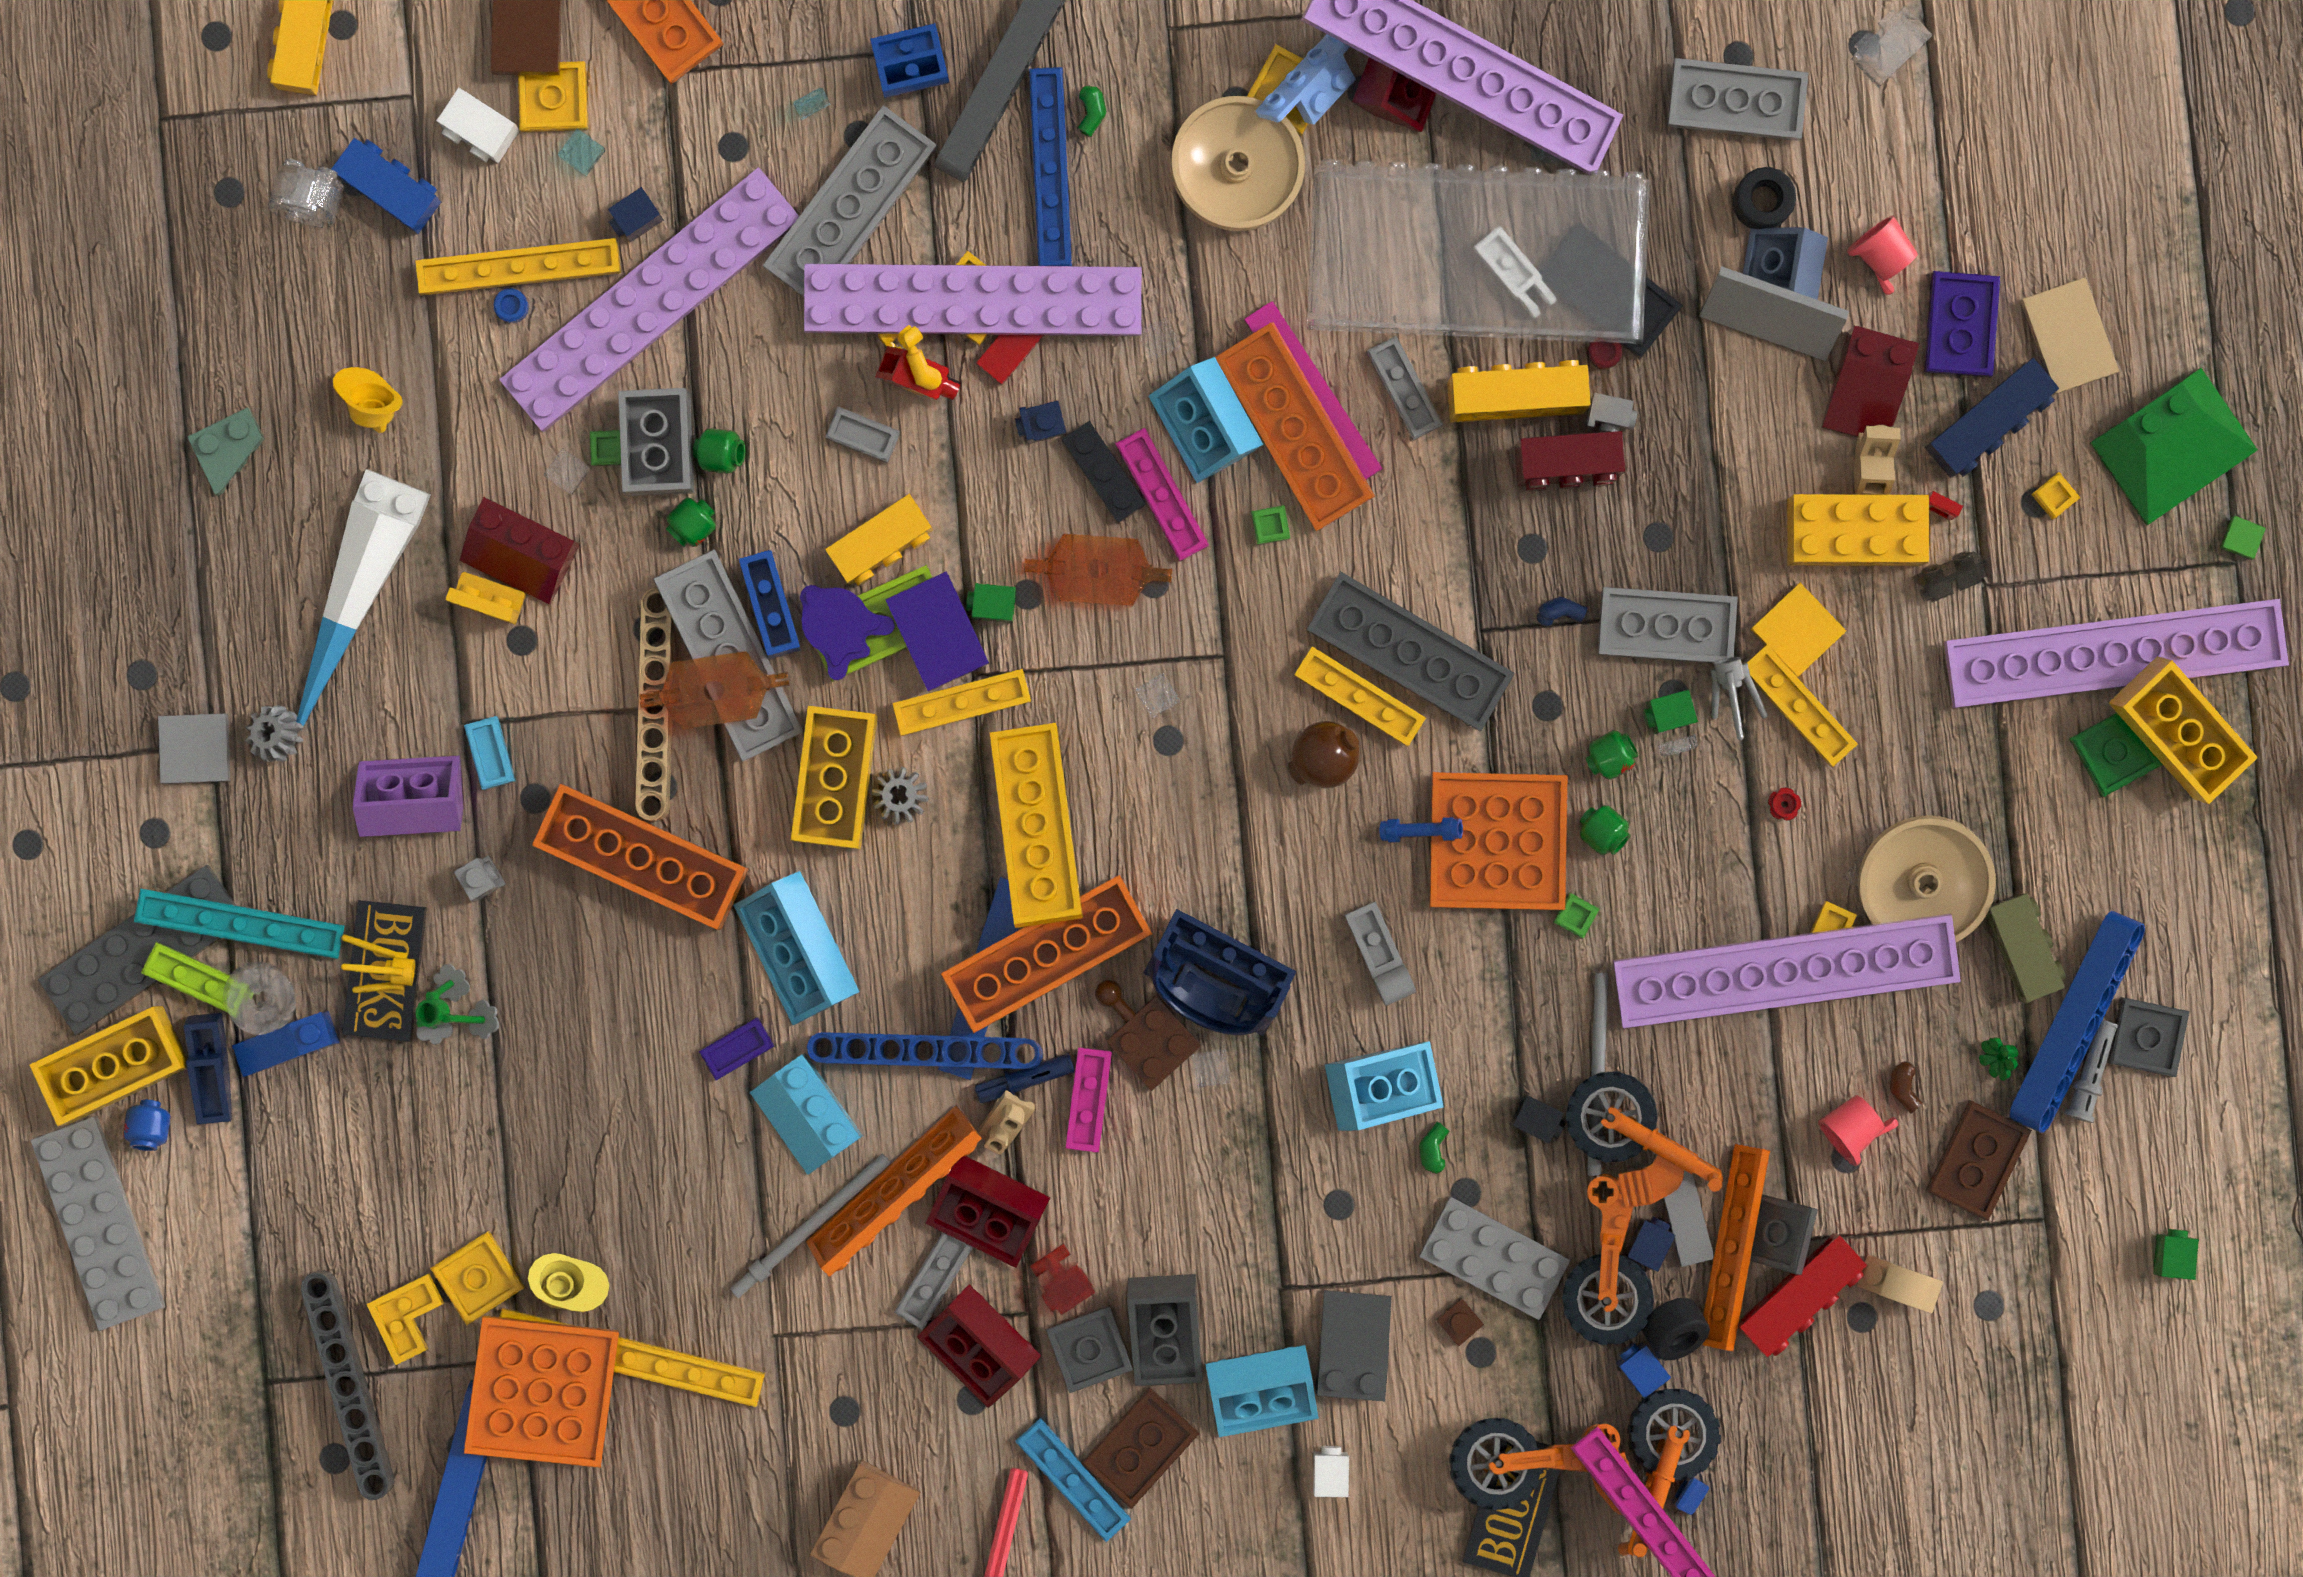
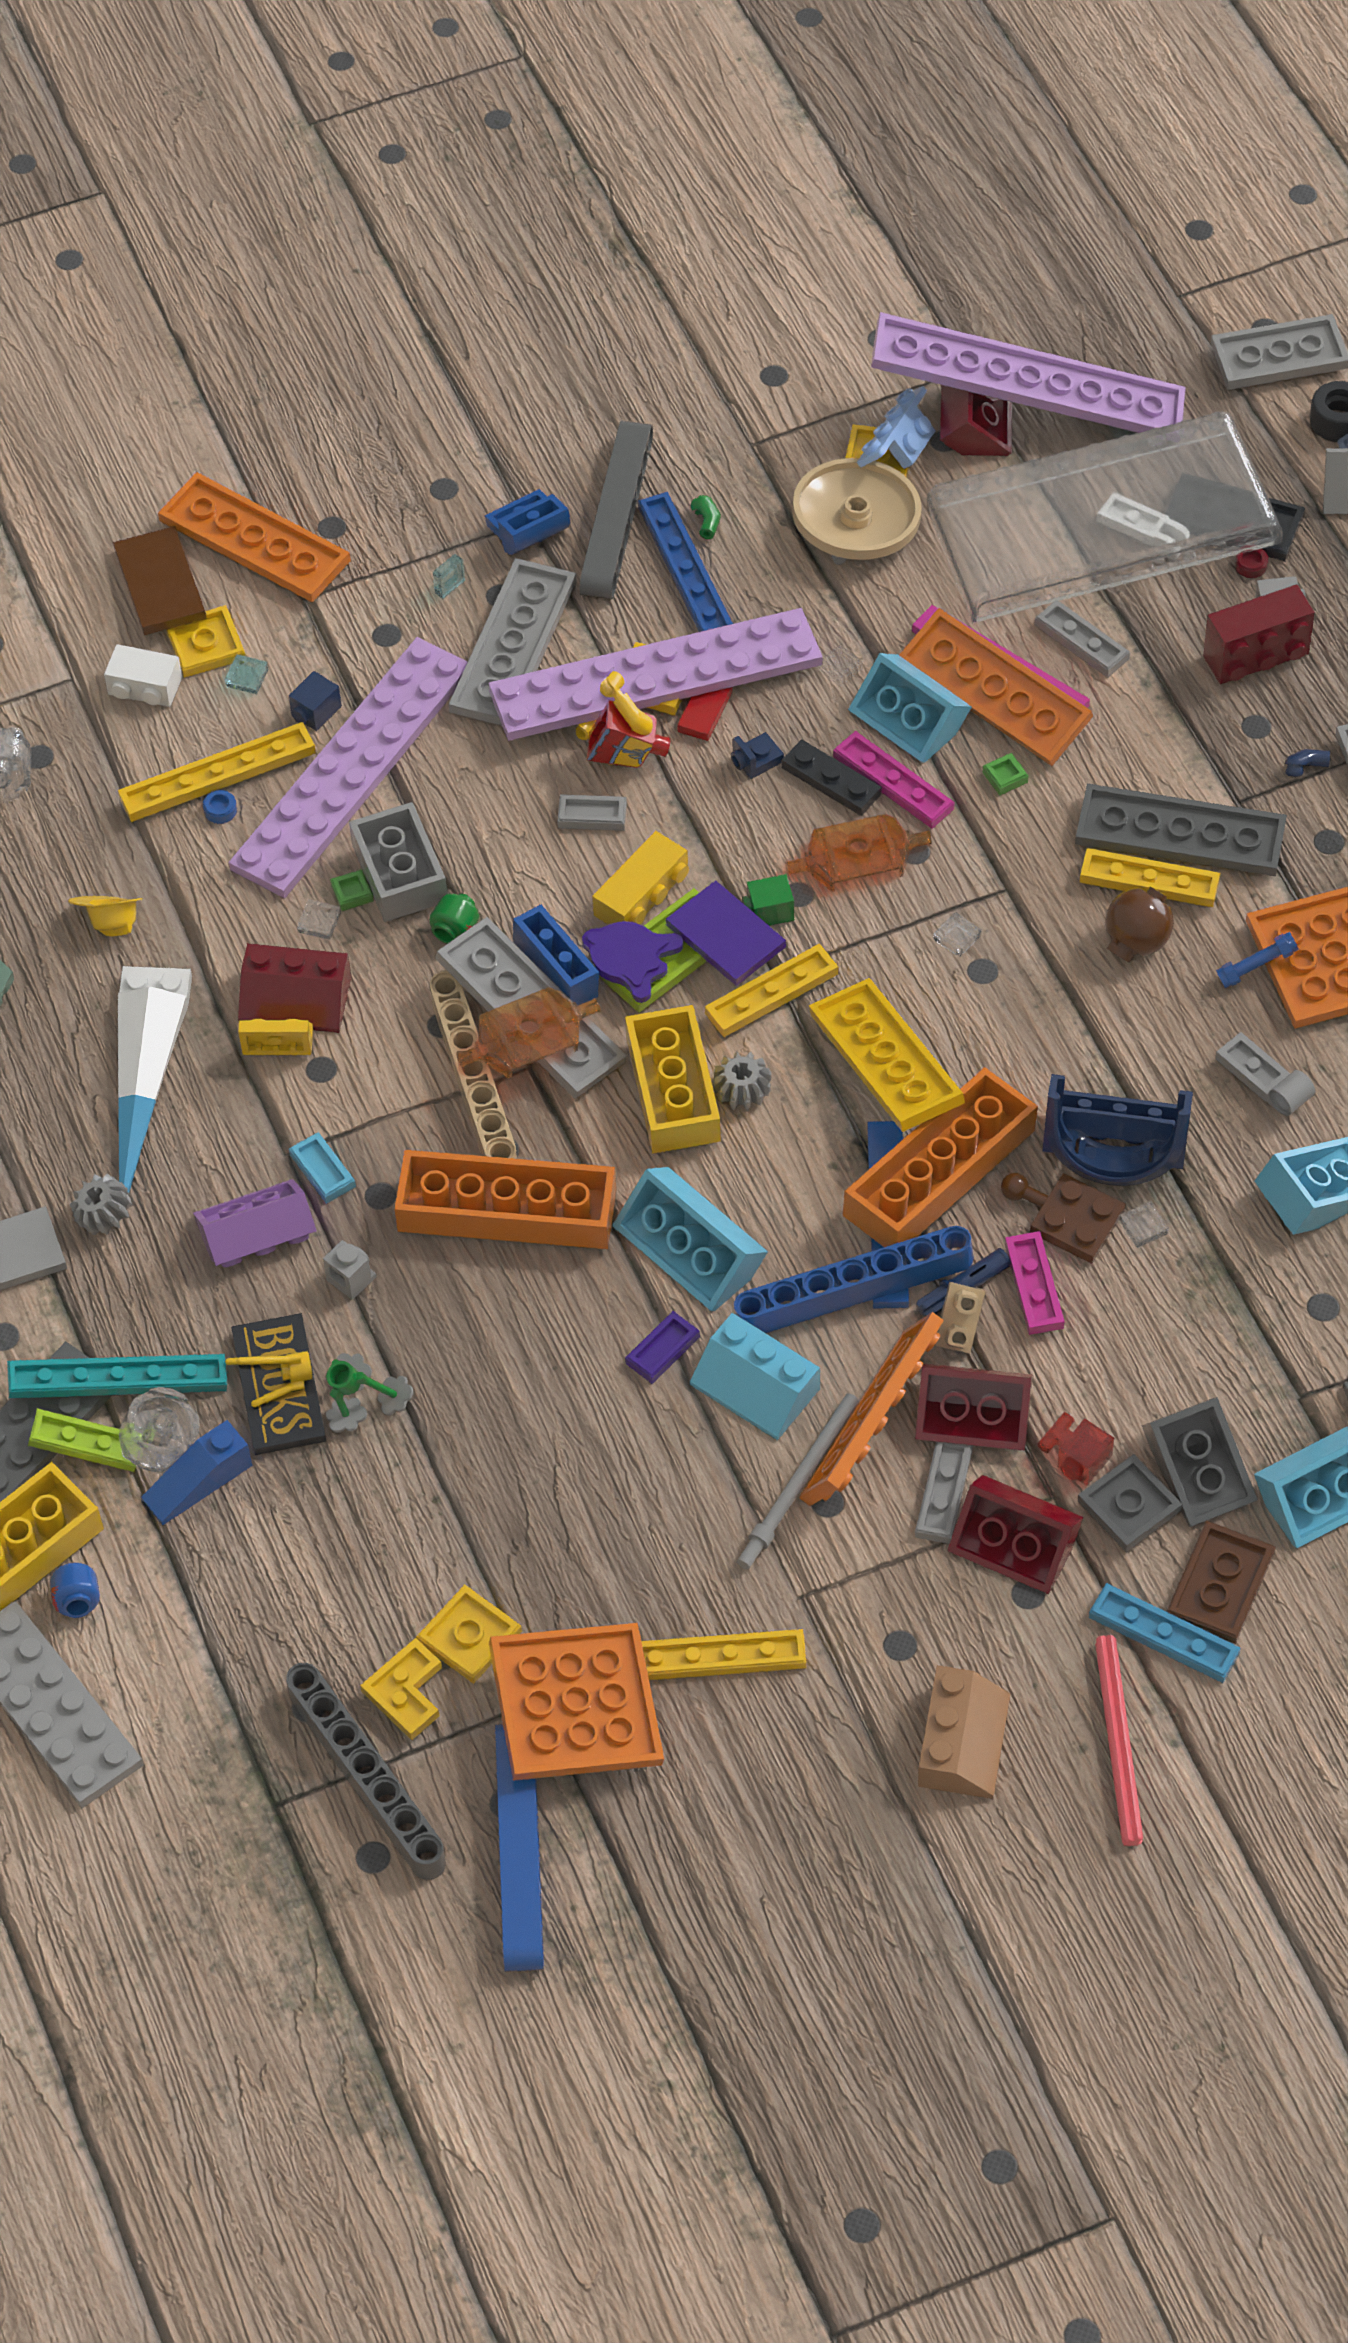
camera: 10 degrees left, 30 degrees down
(208, 1068) = (123, 1520): dark blue slope -> none
(387, 184) = (74, 743): blue brick -> none
(568, 1283) = (566, 1600): light yellow piece -> none
(719, 450) = (461, 856): green head -> none
(1518, 392) = (1180, 598): yellow brick -> none

